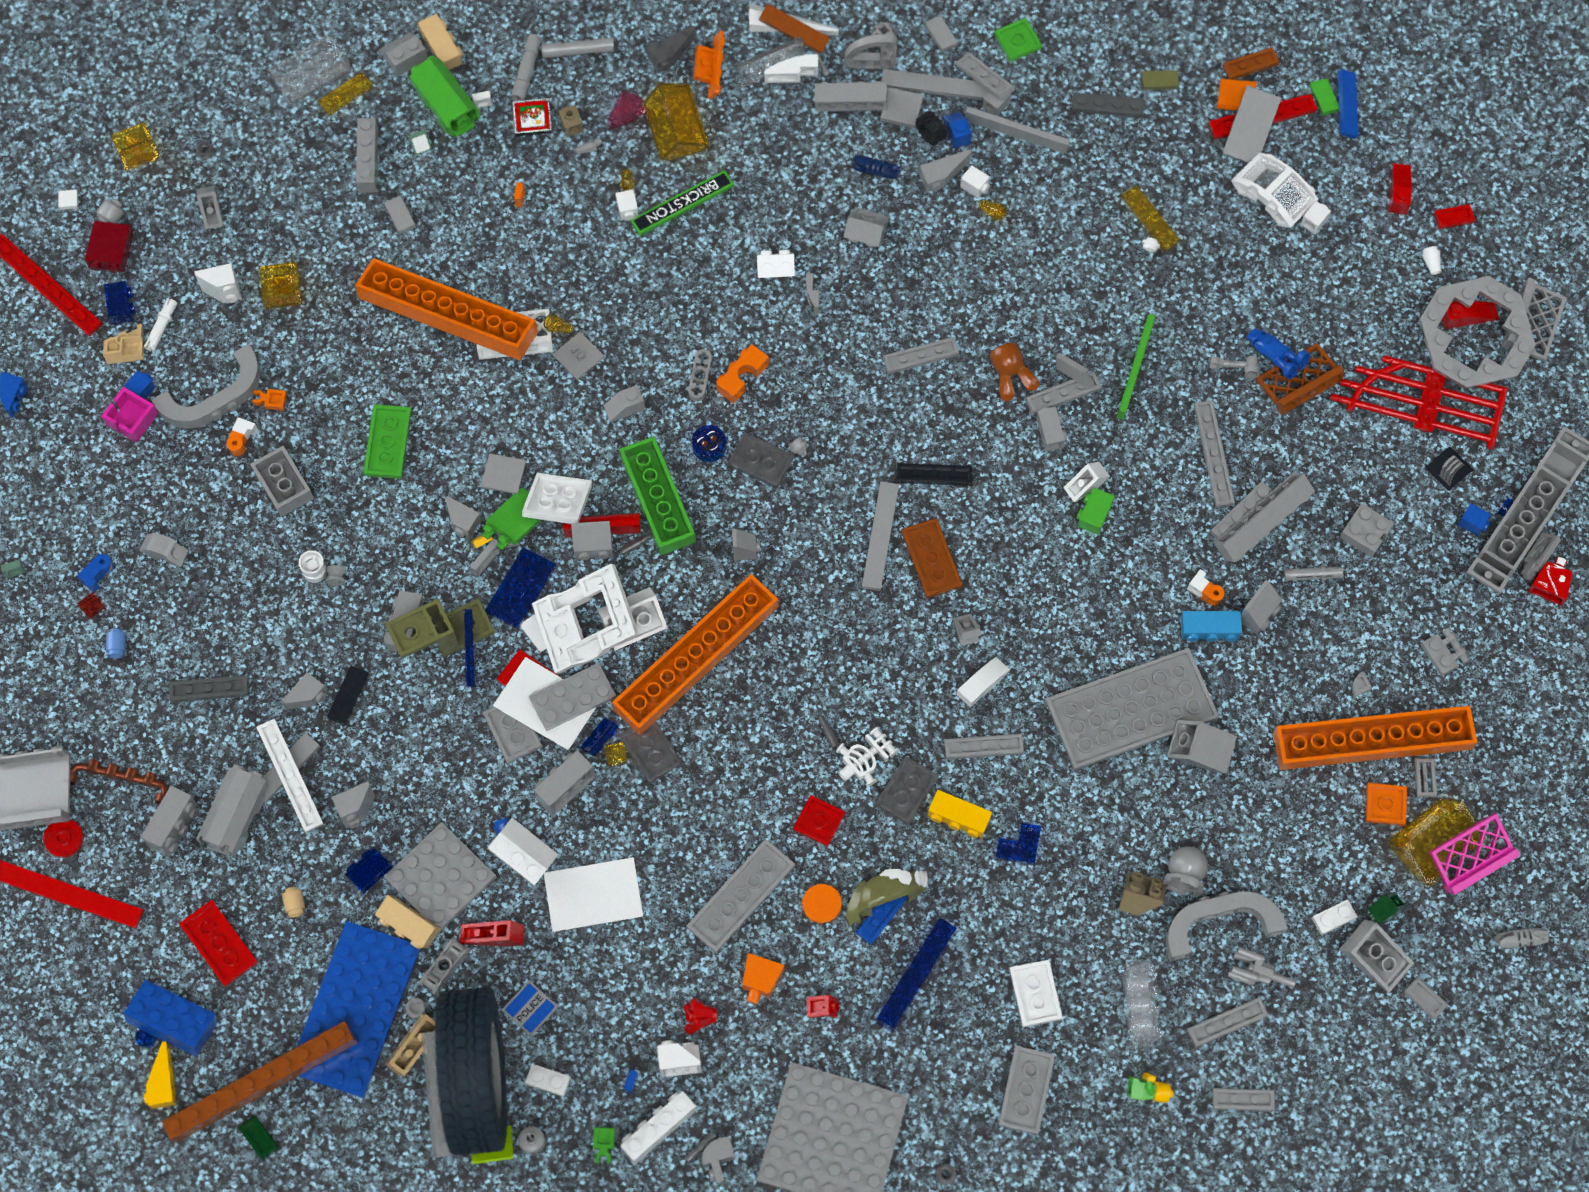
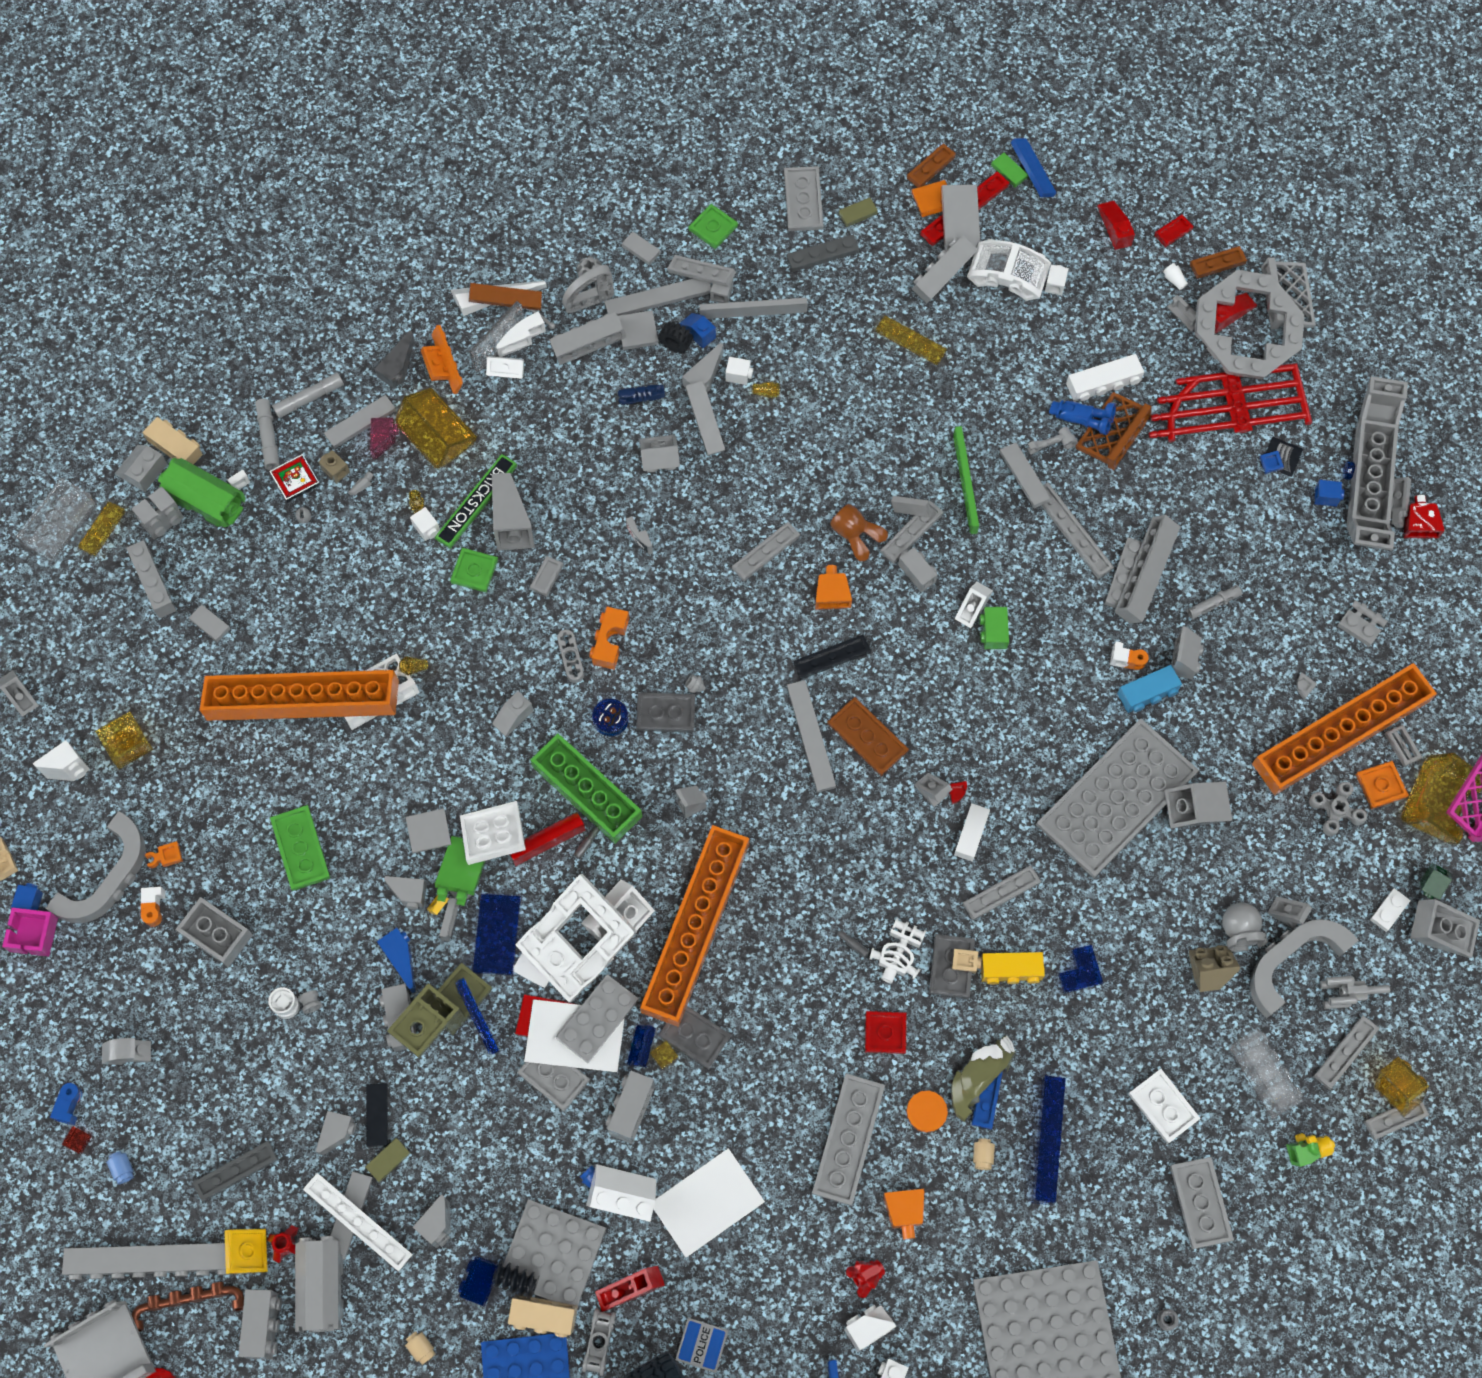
camera: 25 degrees left, 0 degrees up
(106, 730) = (144, 1260): none -> light grey brick
(160, 325) = (20, 826): white pin -> none
(186, 757) = (245, 1251): none -> yellow tile
(220, 764) = (283, 1243): none -> red rock
(339, 737) = (387, 1160): none -> olive tile
(397, 883) = (515, 1280): none -> black piece
(399, 107) = (158, 521): none -> light grey piece
(420, 142) = (197, 545): slope -> none
(429, 569) = (398, 951): none -> blue slope
(519, 195) = (317, 556): orange tile -> none
(527, 154) = (307, 515): none -> light grey hinge
(578, 355) = (445, 686): light grey piece -> none
(592, 540) = (545, 858): light grey slope -> none
(612, 89) = (359, 421): none -> light grey tile
(651, 263) = (474, 570): none -> bright green tile
(701, 231) = (510, 520): none -> light grey slope
(713, 295) = (546, 576): none -> light grey tile
(764, 93) = (505, 367): none -> white plate
(775, 264) = (591, 522): white bracket -> none
(822, 1006) = (976, 1211): bracket -> none
(853, 961) = (983, 1154): none -> tan brick
(920, 790) = (966, 960): none -> tan bracket
(922, 212) = (705, 418): none -> light grey tile
(962, 415) = (833, 590): none -> orange torso
(988, 641) = (958, 791): none -> red tile
(1115, 47) = (803, 198): none -> light grey tile
(1150, 245) = (924, 364): white plate -> none
(1193, 385) = (1025, 475): none -> light grey tile
(1212, 165) = (944, 269): none -> light grey brick
(1238, 876) = (1289, 911): none -> light grey slope
(1259, 1070) = (1401, 1086): none -> clear yellow brick
(1315, 327) = (1105, 378): none -> white brick
(1326, 811) = (1340, 802): none -> light grey gear
(1366, 530) = (1241, 542): light grey piece -> none
(1422, 293) = (1183, 312): none -> light grey hinge
(1435, 469) = (1271, 462): none -> blue tile
(1481, 263) = (1218, 262): none -> dark orange plate

